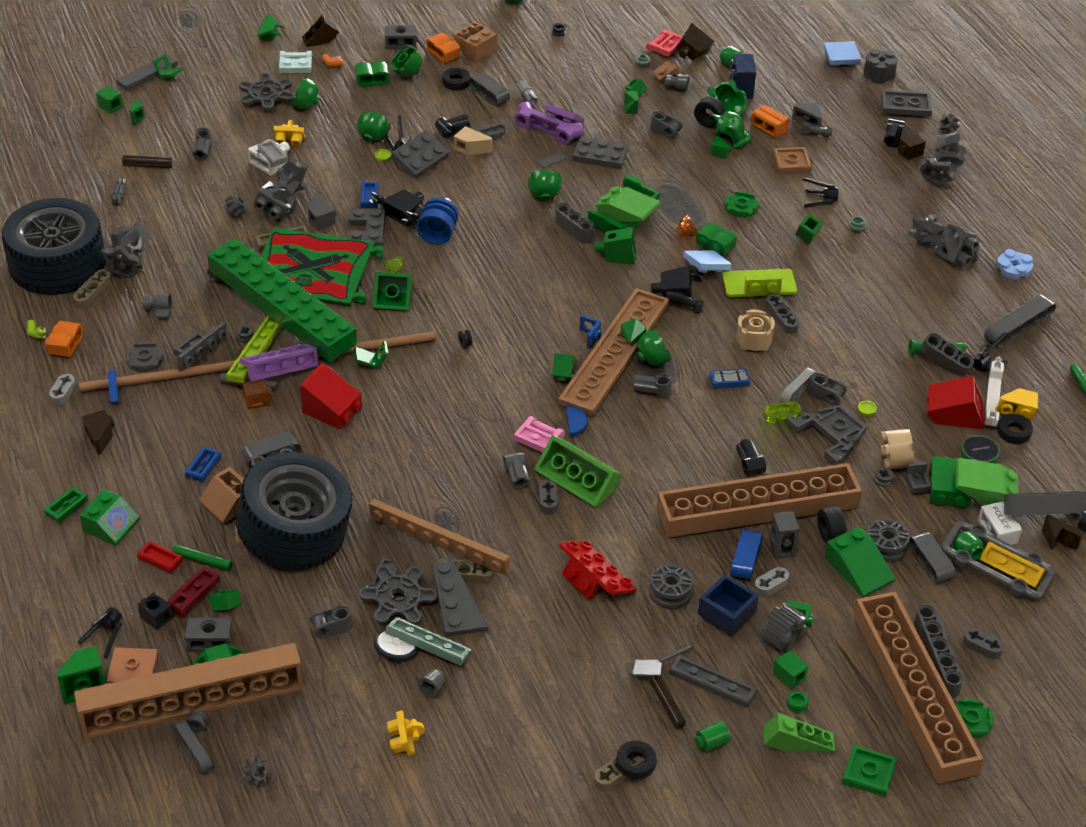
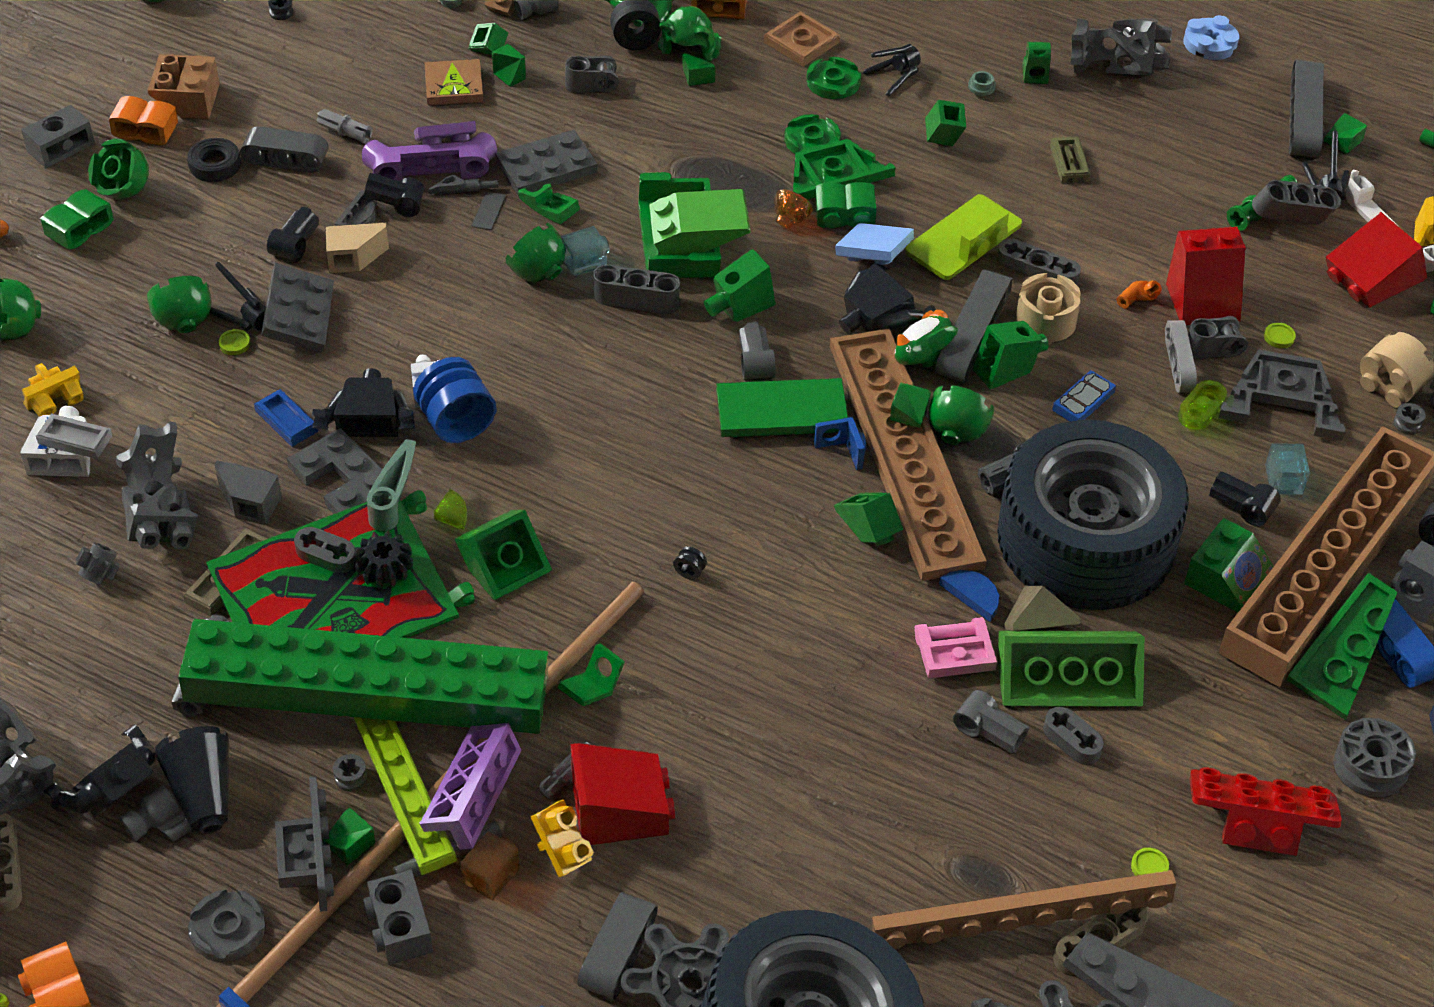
camera: 40 degrees left, 5 degrees up
(157, 280) = (110, 779): none -> black torso
(186, 297) = (198, 775): none -> black cone
(203, 390) = (403, 916): none -> dark grey brick
(218, 354) = (350, 836): none -> green slope
(290, 400) = (562, 838): none -> yellow hips
(318, 248) = (326, 547): none -> dark grey beam
(338, 263) = (383, 559): none -> black gear
(367, 236) = (388, 488): none -> sand green piece
(516, 133) = (403, 194): none -> black piece
(520, 562) = (1149, 861): none -> lime piece
(548, 141) = (455, 185): none -> dark grey hand
(570, 194) = (585, 250): none -> clear light blue brick
(578, 301) = (779, 406): none -> green tile
(581, 169) = (549, 204): none -> green slope
(592, 441) = (1039, 609): none -> dark tan slope
(594, 279) = (756, 357): none -> dark grey piece
(599, 98) = (453, 82): none -> medium nougat tile
(656, 416) = (1092, 513): none -> black wheel
(676, 311) = (925, 339): none -> green animal
(702, 471) = (1228, 565): none -> green slope
(705, 539) = (1341, 653): none -> green wing
(710, 320) = (980, 310): none -> dark grey beam
(712, 337) = (1008, 352): none -> green torso
(738, 221) = (836, 163): none -> green wing
(785, 185) = (833, 78): none -> green tile
(787, 458) = (1287, 468): none -> clear light blue brick
(816, 350) = (1139, 292): none -> orange arm
(851, 357) = (1207, 274): none -> red slope
(868, 272) = (1072, 173): none -> olive tile
(898, 224) = (1037, 58): none -> green leg
(1027, 344) = (1350, 133): none -> green slope

